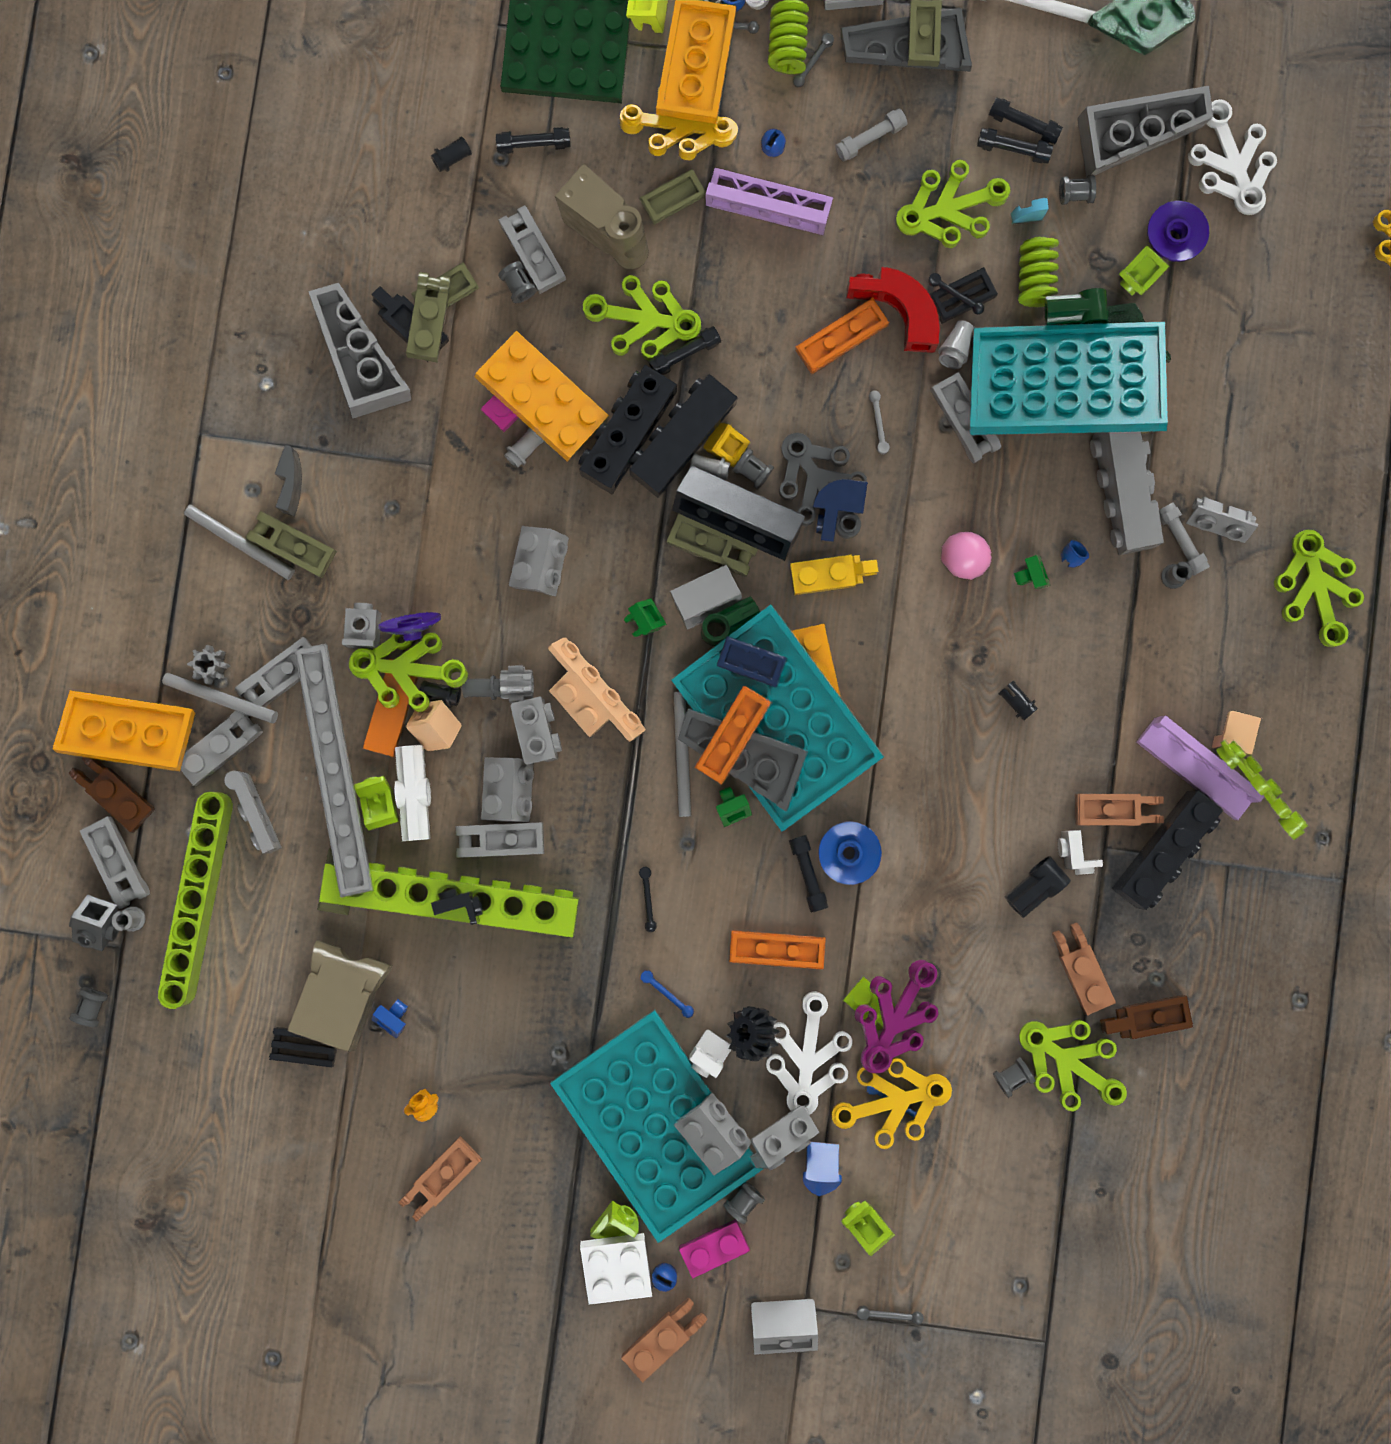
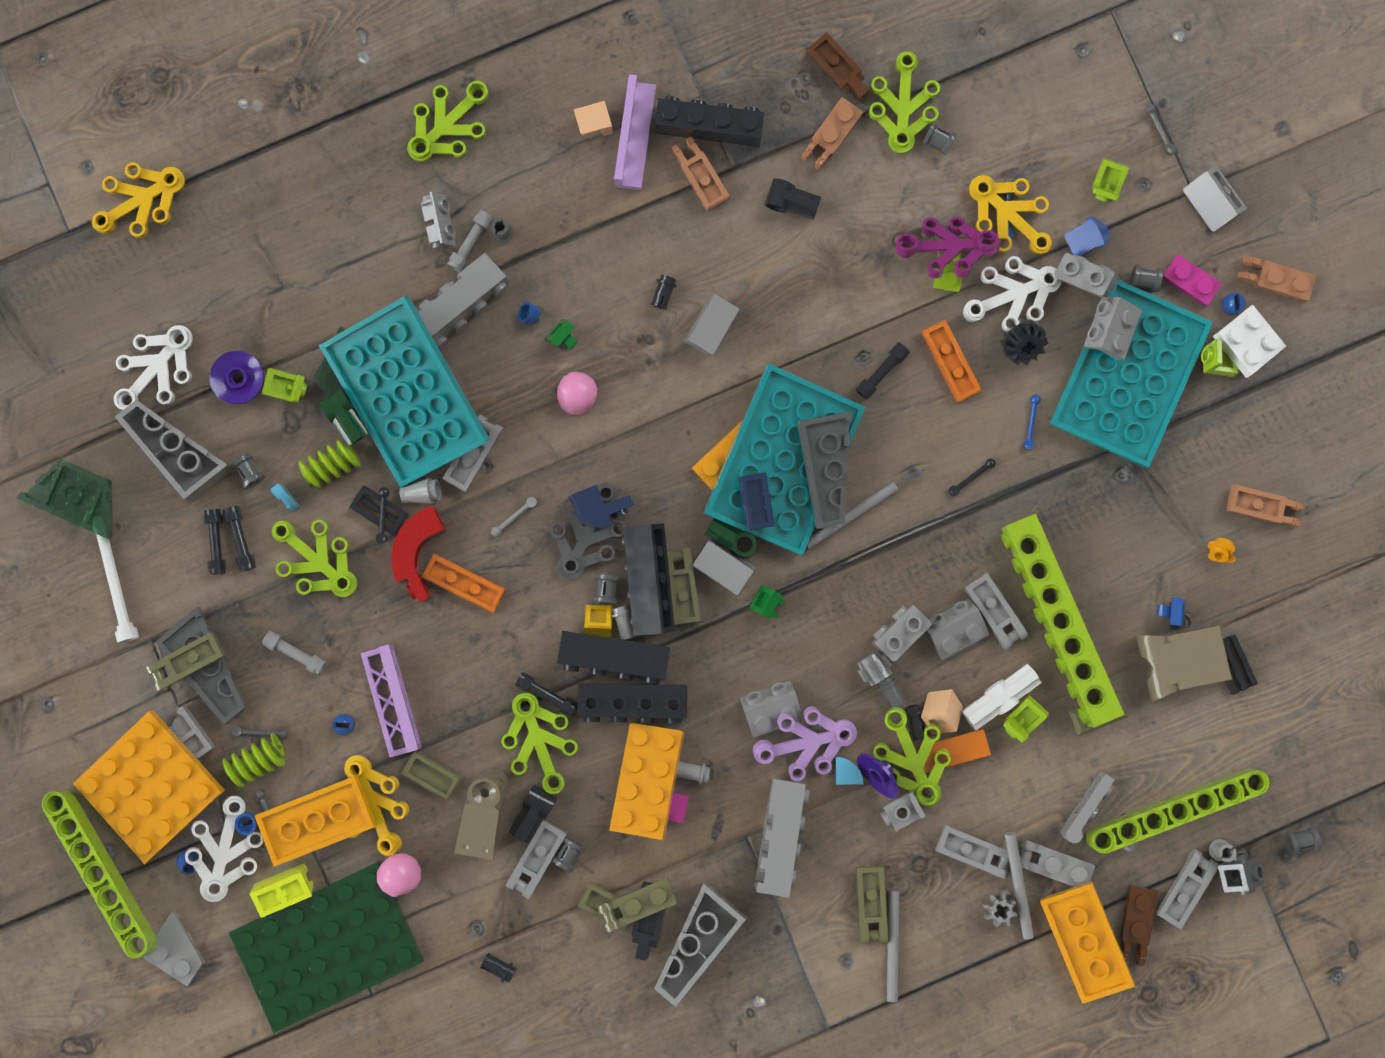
camera: 120 degrees left, 0 degrees up
(289, 471) = (817, 939): dark grey slope -> none
(334, 770) = (1021, 764): light grey tile -> none
(407, 492) = (780, 837): none -> light grey wedge
(432, 597) = (847, 772): none -> medium azure tile
(451, 900) = (1064, 614): black bracket -> none
(484, 577) = (809, 742): none -> lavender plant
(506, 142) = (463, 930): black bar -> none
(580, 275) = (535, 809): none -> black piece
(588, 696) = (850, 609): light nougat bracket -> none
(596, 111) = (399, 874): none -> bright pink hair
(709, 1054) = (1058, 364): white bracket -> none
(732, 808) = (868, 453): green tile -> none
(733, 734) = (818, 482): orange tile -> none
(830, 573) = (651, 485): yellow hinge -> none
(866, 856) = (859, 339): blue dish -> none
(956, 728) = (711, 324): none -> light grey hinge
(1072, 850) = (750, 191): white bracket -> none
(1234, 756) = (625, 80): lime plant -> none

